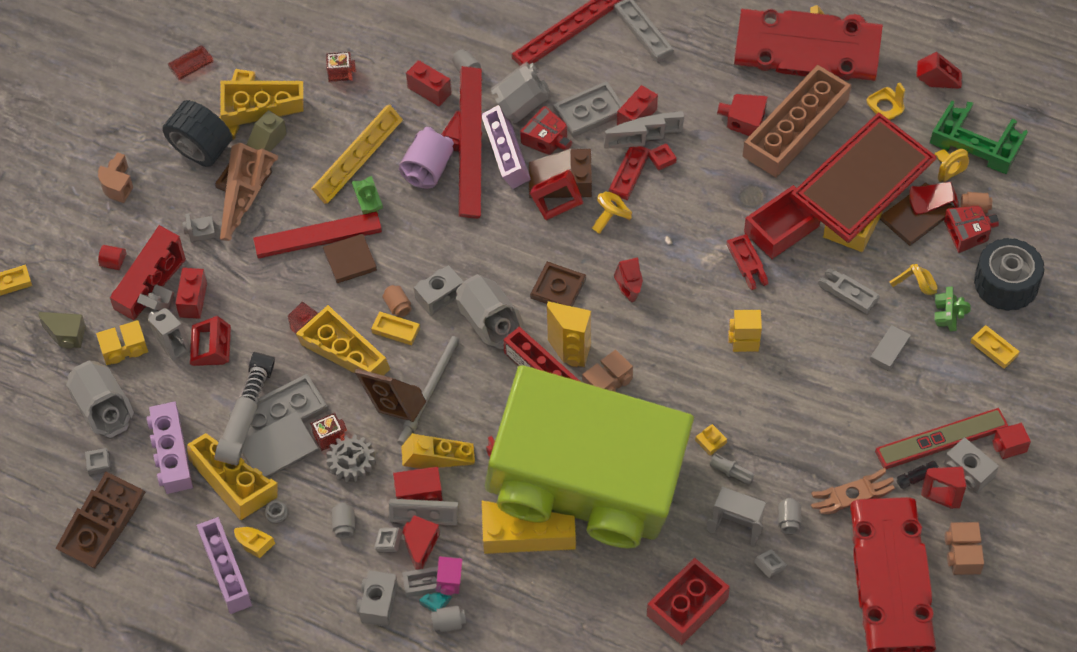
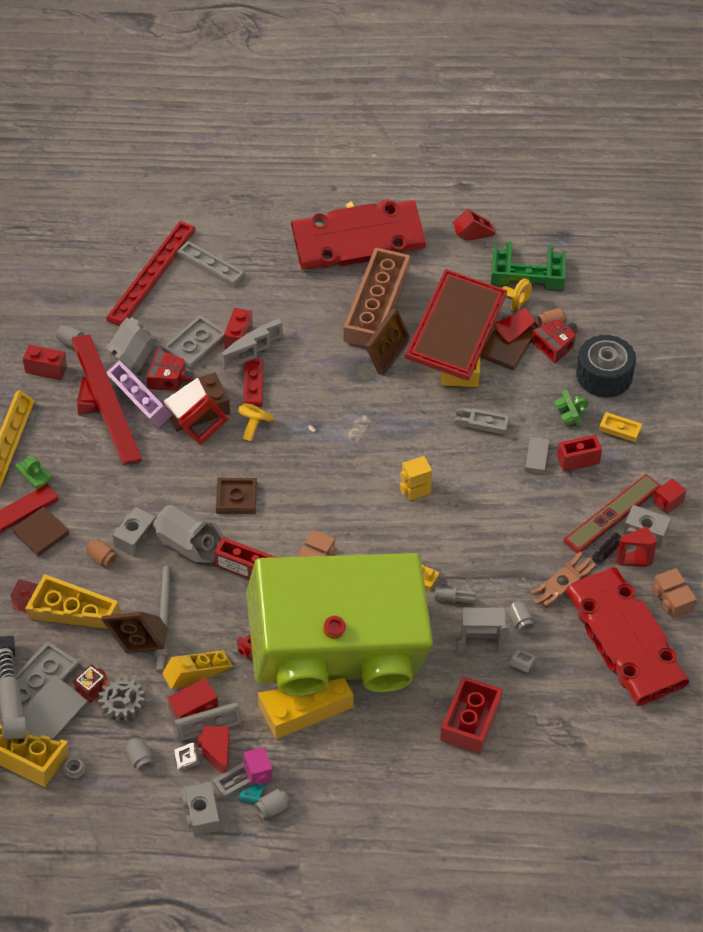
camera: 25 degrees left, 5 degrees down
(224, 565) = (50, 830): lavender brick -> none
(254, 540) = (66, 800): yellow plate -> none
(395, 328) = (109, 576): yellow tile -> none
(426, 158) = (73, 424): lavender cylinder -> none
(569, 333) = (268, 527): yellow slope -> none
(569, 463) = (334, 627): none -> red tile
(629, 278) = (297, 468): red piece -> none
(662, 156) = (276, 361): red plate -> none
(744, 113) = (330, 306): red torso -> none
(747, 260) = (388, 423): red hinge -> none
(779, 224) = (402, 384): red piece -> none
(785, 170) = (387, 341): none -> reddish brown tile
(888, 94) = (439, 255): yellow piece -> none
(925, 279) = (533, 387): yellow piece -> none
(934, 360) = (579, 453): none -> red brick

